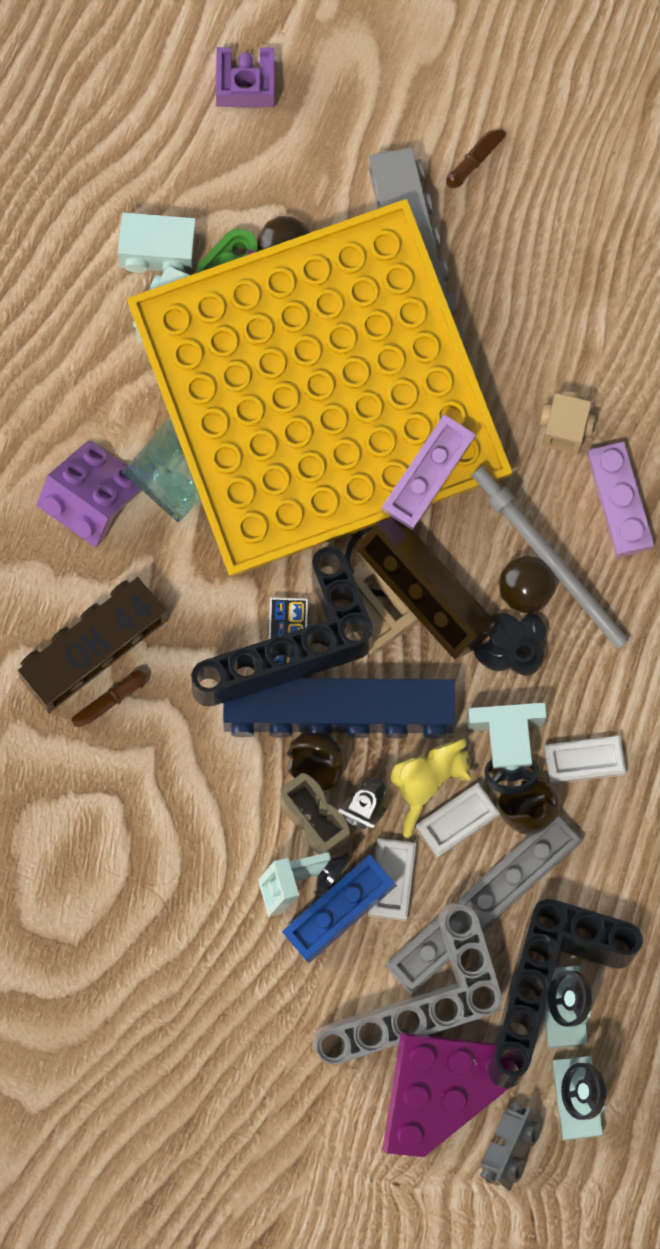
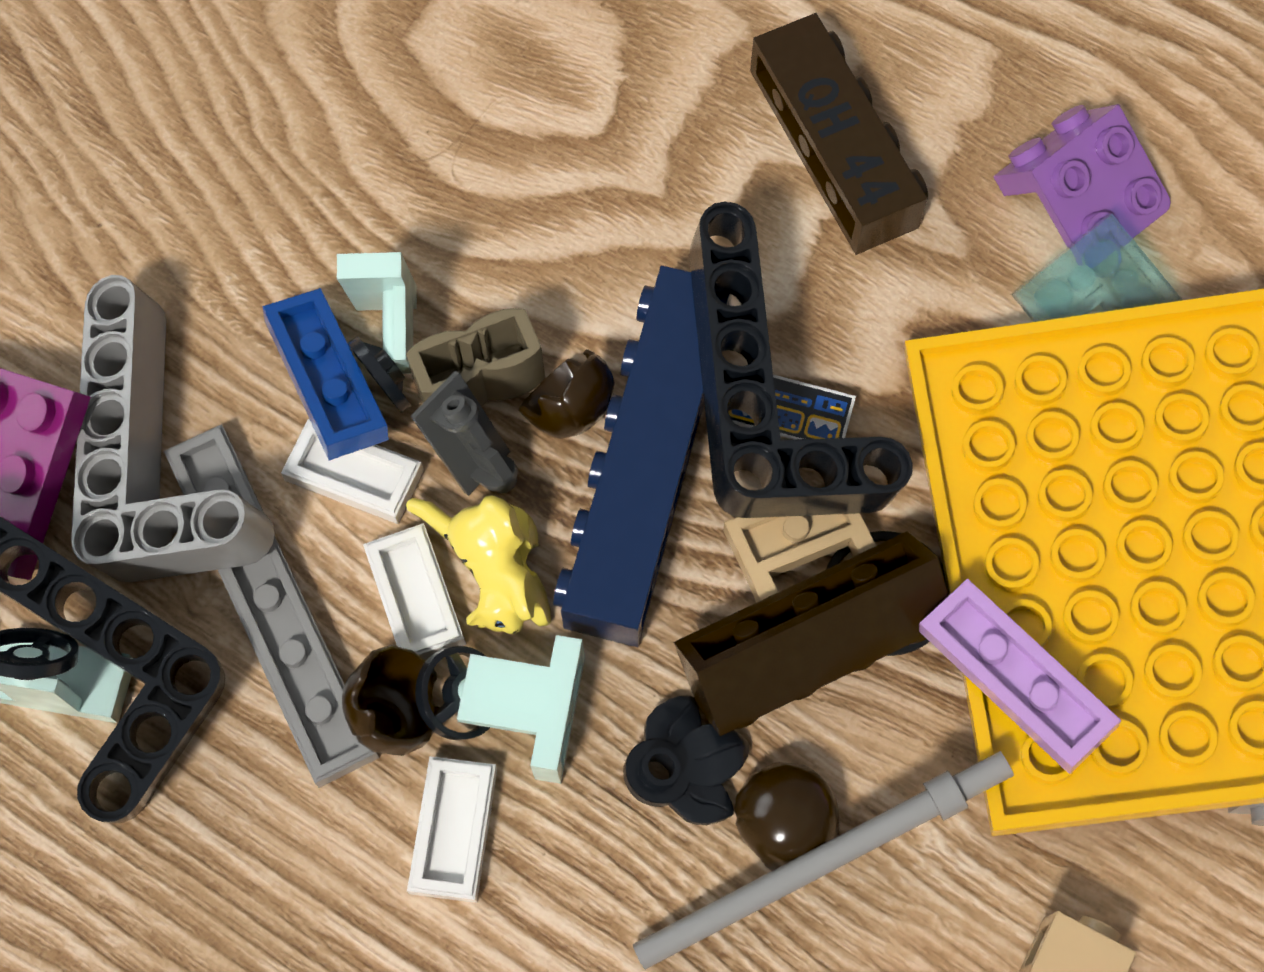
camera: 110 degrees right, 5 degrees down
(96, 709) = (751, 151): reddish brown piece -> none

